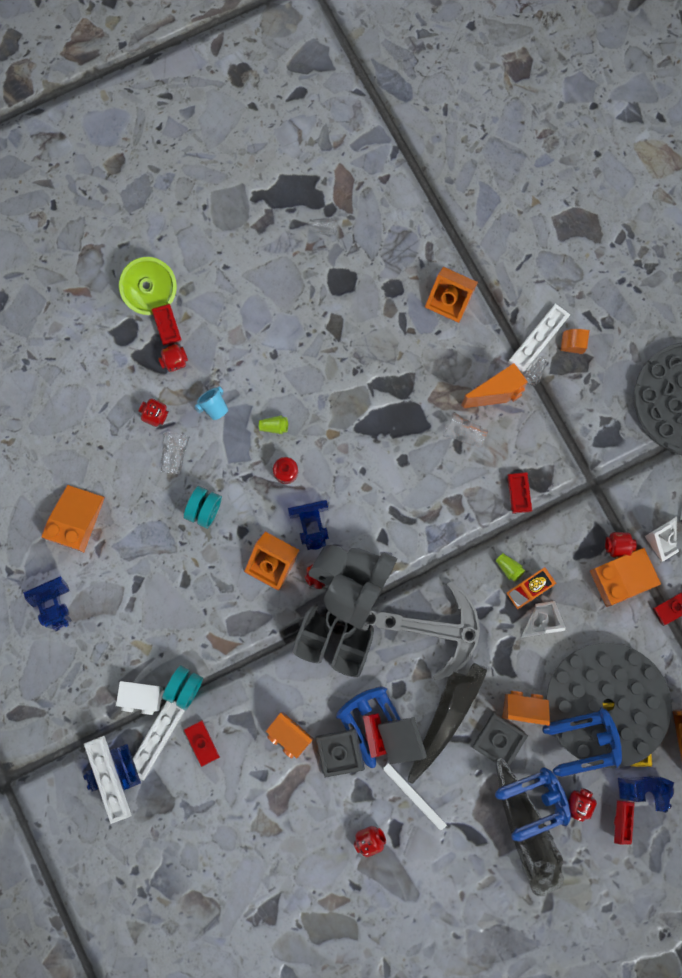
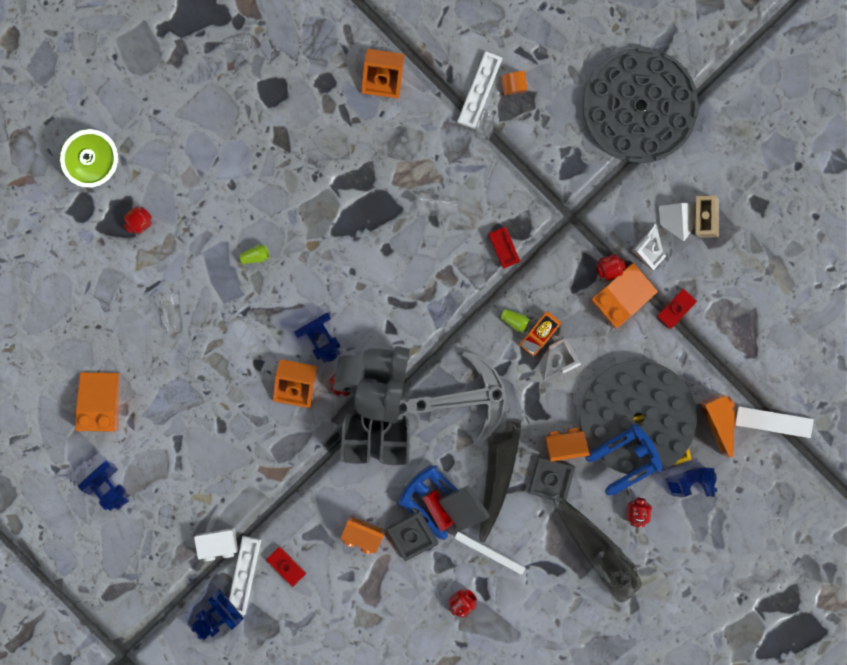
camera: 20 degrees left, 10 degrees up
(107, 779) = (213, 625): white tile -> none
(153, 412) = (137, 279): red head -> none
(166, 325) = (119, 189): red plate -> none
(182, 687) = (252, 524): teal wheel -> none
(202, 507) = (214, 355): teal wheel -> none
(212, 403) = (190, 253): medium azure piece -> none
(285, 470) = (280, 295): red head -> none
(499, 389) = (456, 155): orange slope -> none
(555, 796) = (613, 512): blue piece -> none
(624, 822) = (680, 516): red plate -> none

